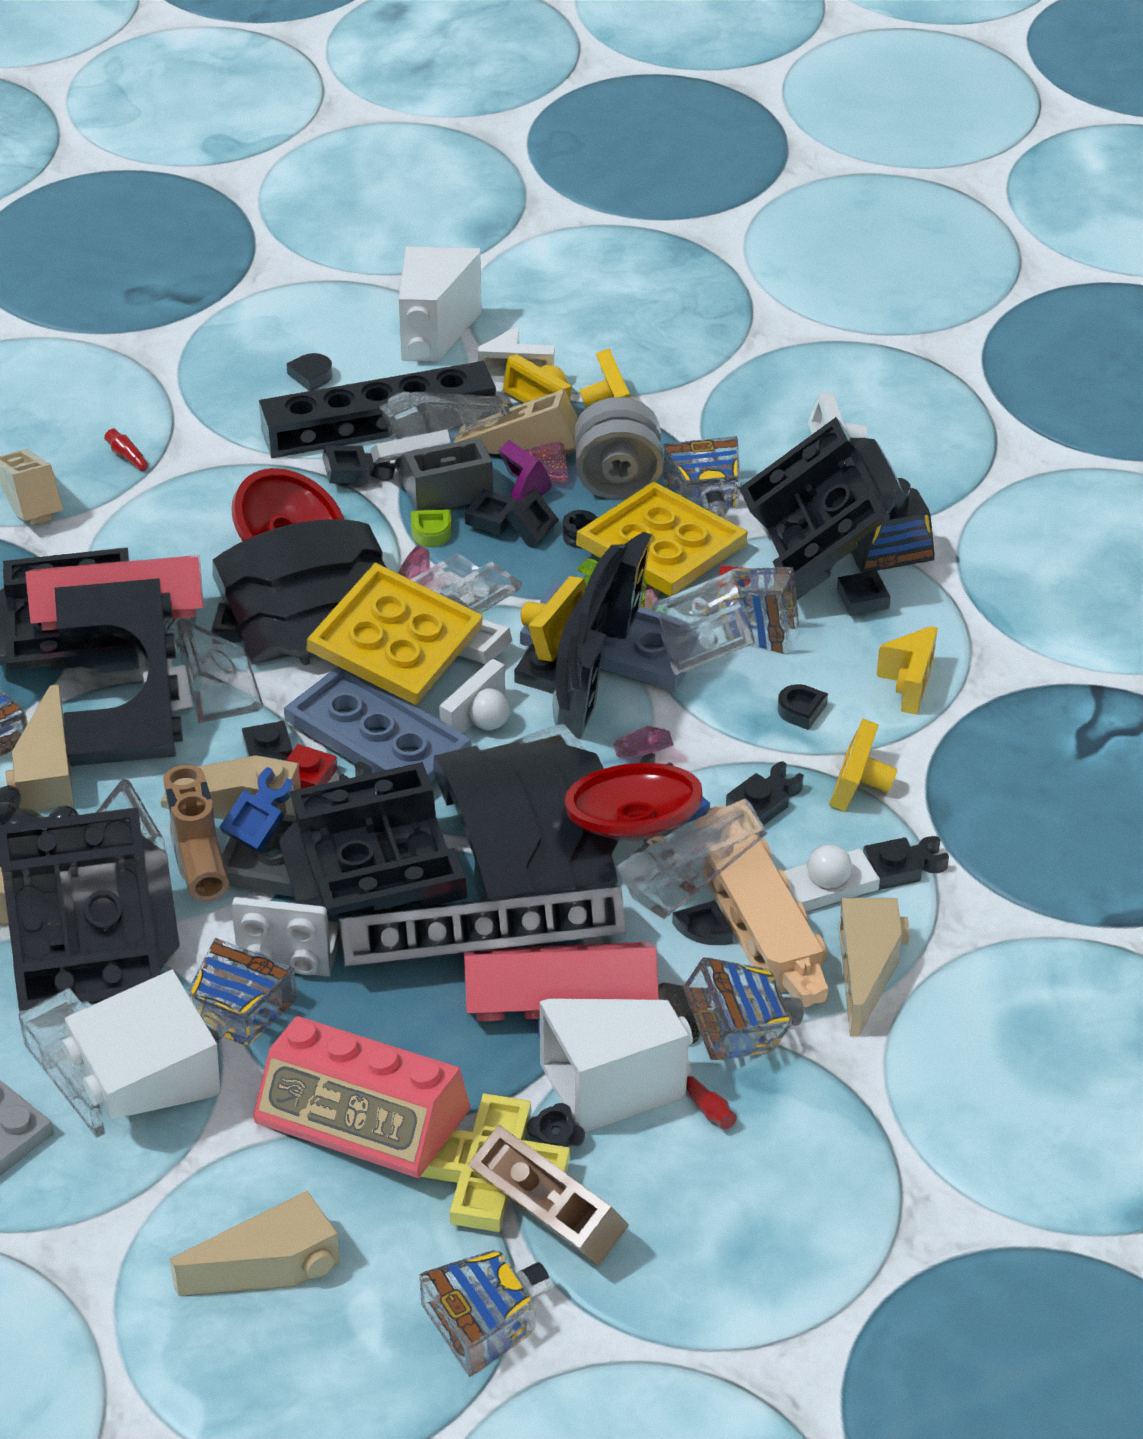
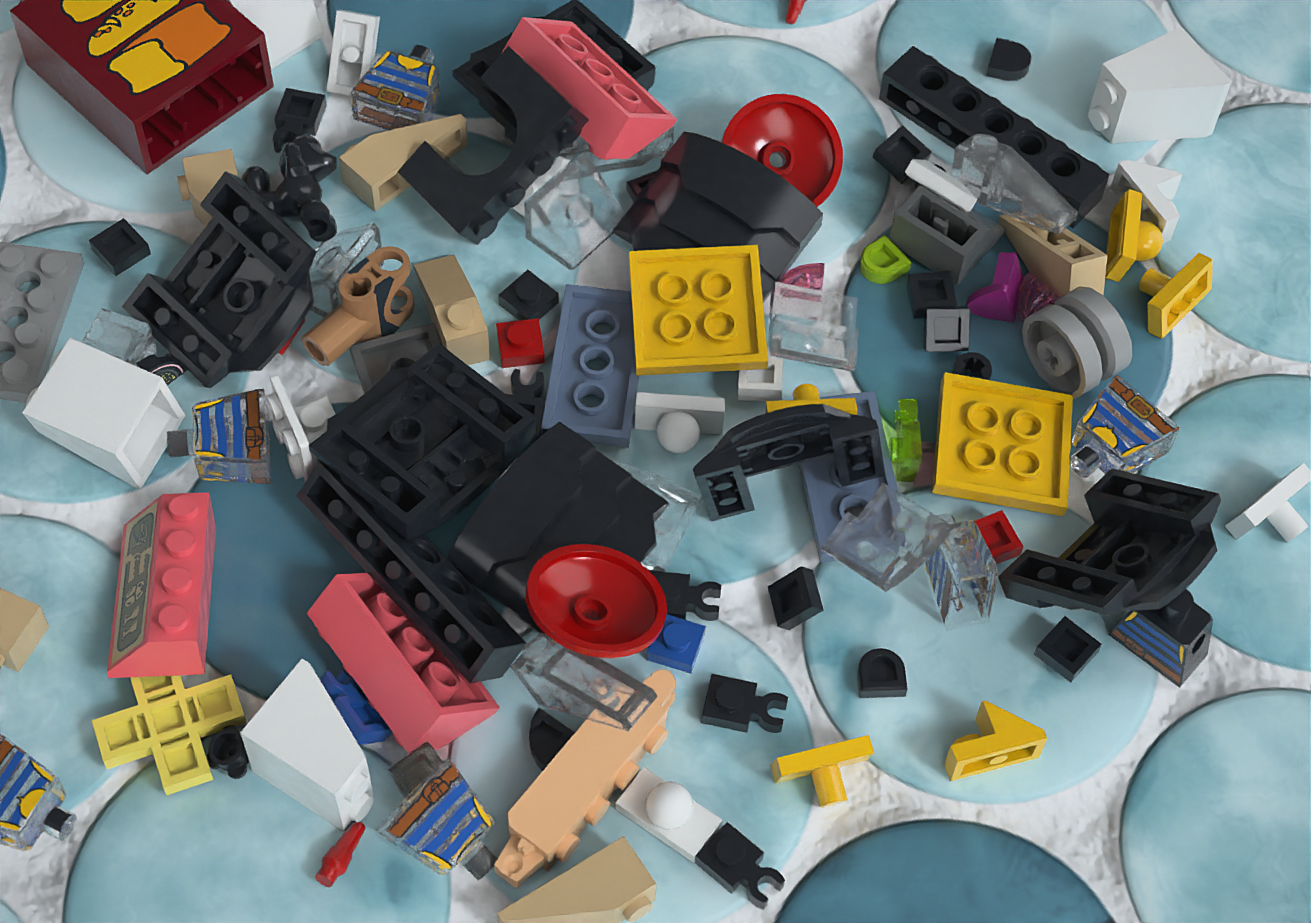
camera: 55 degrees right, 15 degrees up
(255, 816) = (408, 334): blue plate -> none
(549, 1194) = (136, 788): medium nougat slope -> none
(642, 742) = (730, 572): clear pink tile -> none
(700, 714) = (795, 598): none -> black plate

